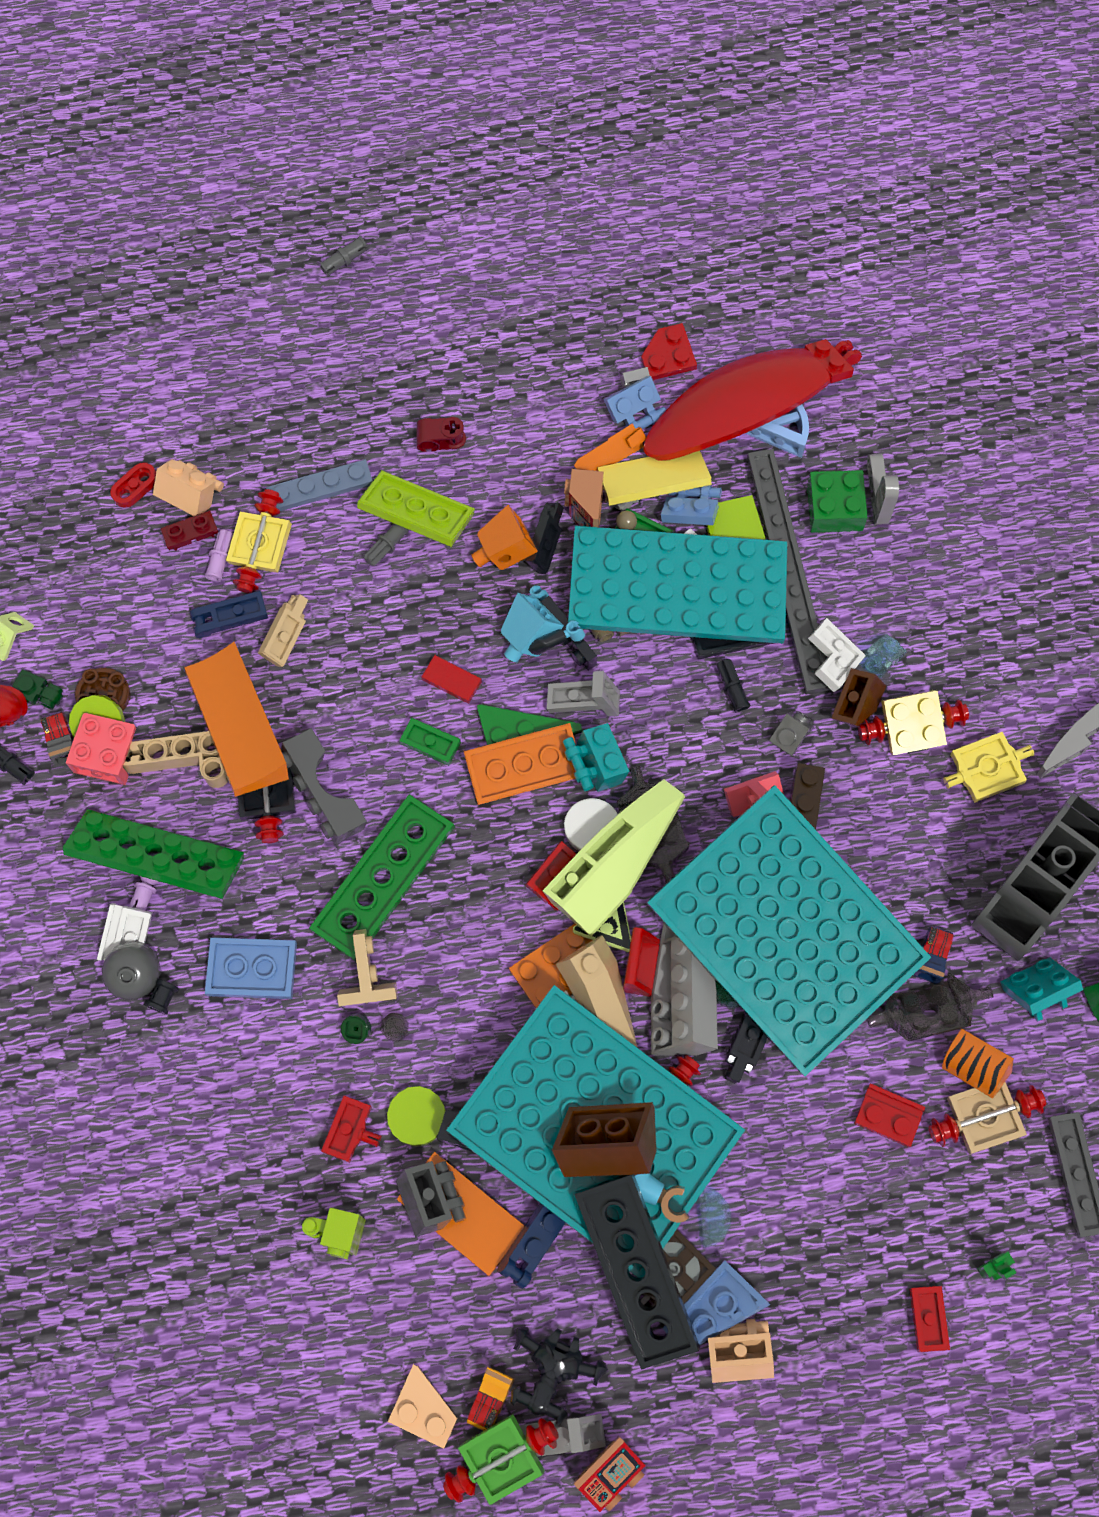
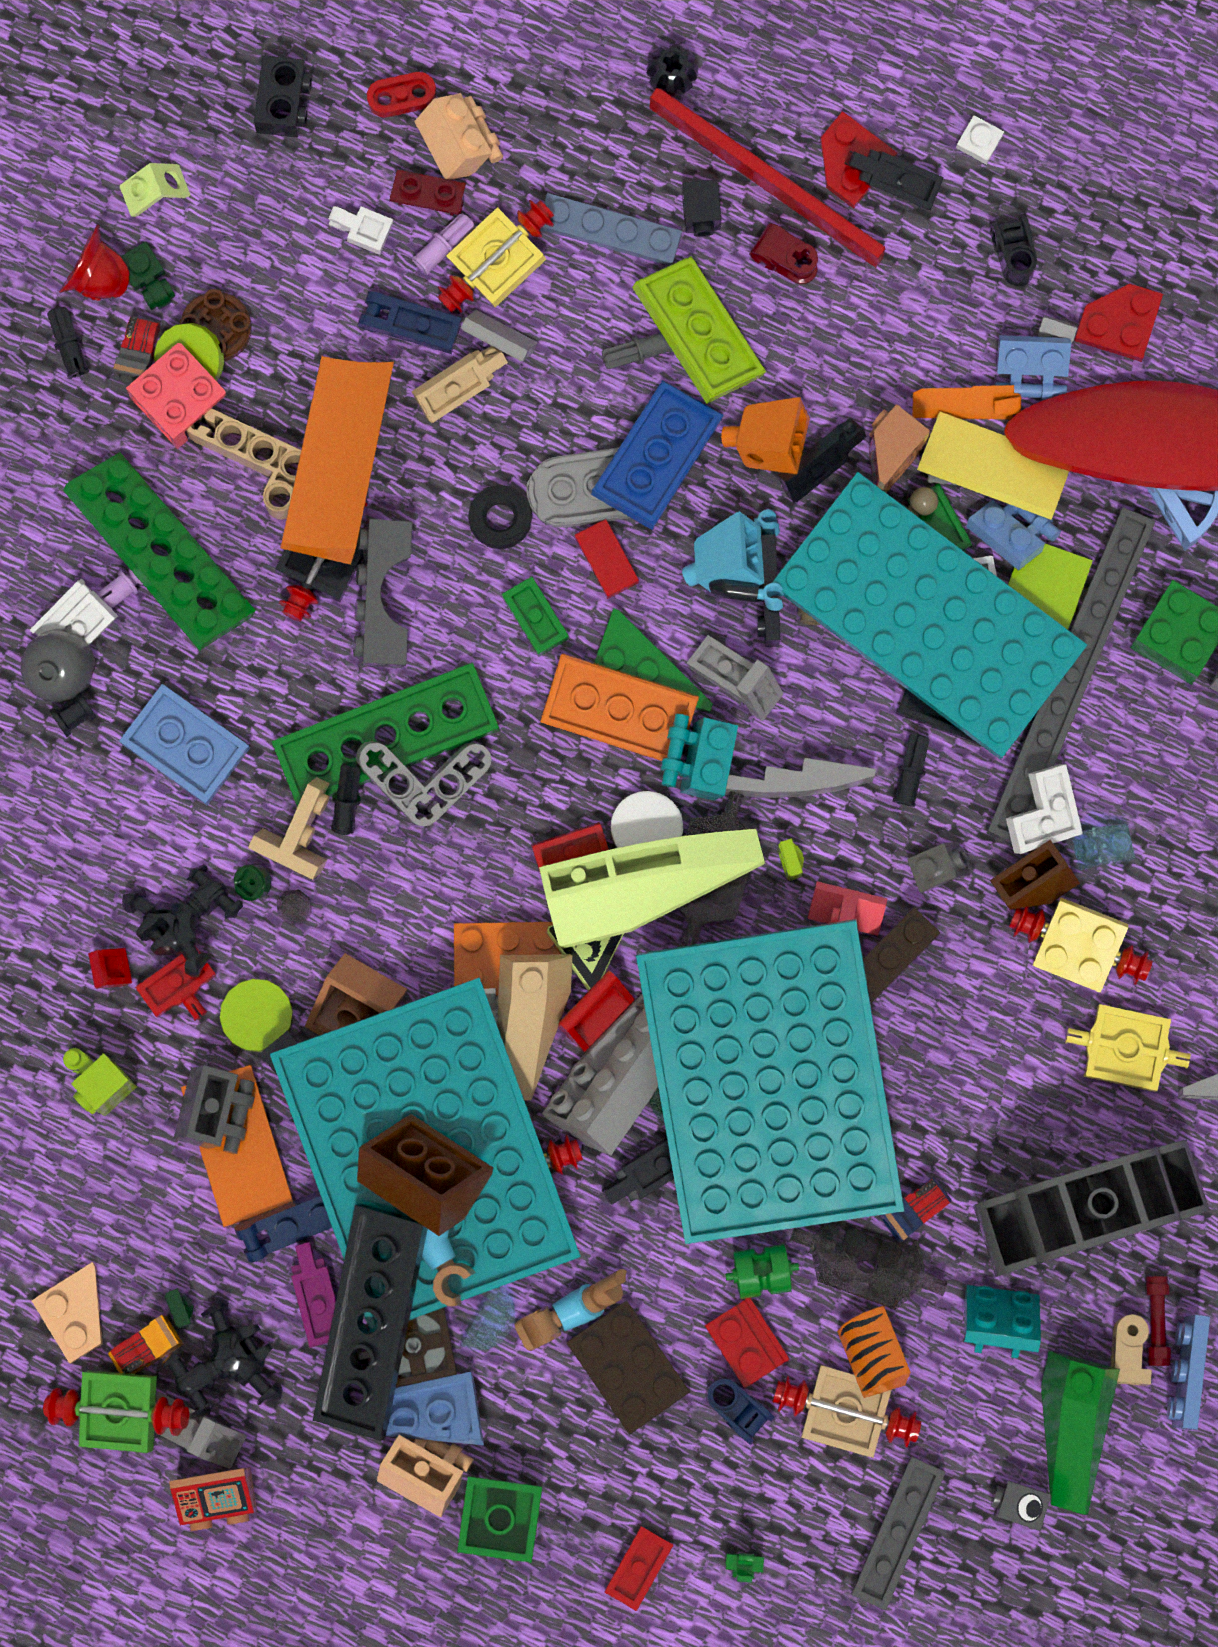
camera: 30 degrees right, 10 degrees up
(53, 532) = (274, 96): none -> black brick
(163, 576) = (365, 229): none -> white plate
(291, 587) = (499, 335): none -> light grey tile
(295, 1149) = (110, 968): none -> red plate
(296, 371) = (666, 60): none -> black piece
(321, 1091) = (174, 924): none -> black piece
(359, 681) = (500, 538): none -> black tyre
(368, 437) = (701, 207): none -> black brick
(384, 932) = (346, 799): none -> black axle
(397, 397) = (767, 177): none -> red tile
(415, 640) = (565, 490): none -> light grey tile
(426, 898) = (415, 790): none -> light grey beam
(441, 597) = (657, 455): none -> blue tile
(442, 359) = (836, 142): none -> red plate
(472, 1059) = (352, 994): none -> nougat slope
(476, 350) = (896, 177): none -> black hinge
(497, 1353) = (180, 1307): none -> dark green tile
(511, 304) = (980, 139): none -> white plate
(574, 349) = (1014, 243): none -> black piece
(584, 1281) = (314, 1294): none -> magenta hinge
(675, 728) = (813, 779): none -> light grey slope
(697, 787) = (791, 859): none -> lime tile
(762, 1172) = (570, 1311): none -> medium nougat piece
(816, 1350) = (500, 1519): none -> green brick
(825, 1185) = (628, 1367): none -> dark brown plate
(866, 1061) = (762, 1271): none -> green wheel
(921, 1163) = (739, 1410): none -> dark blue piece

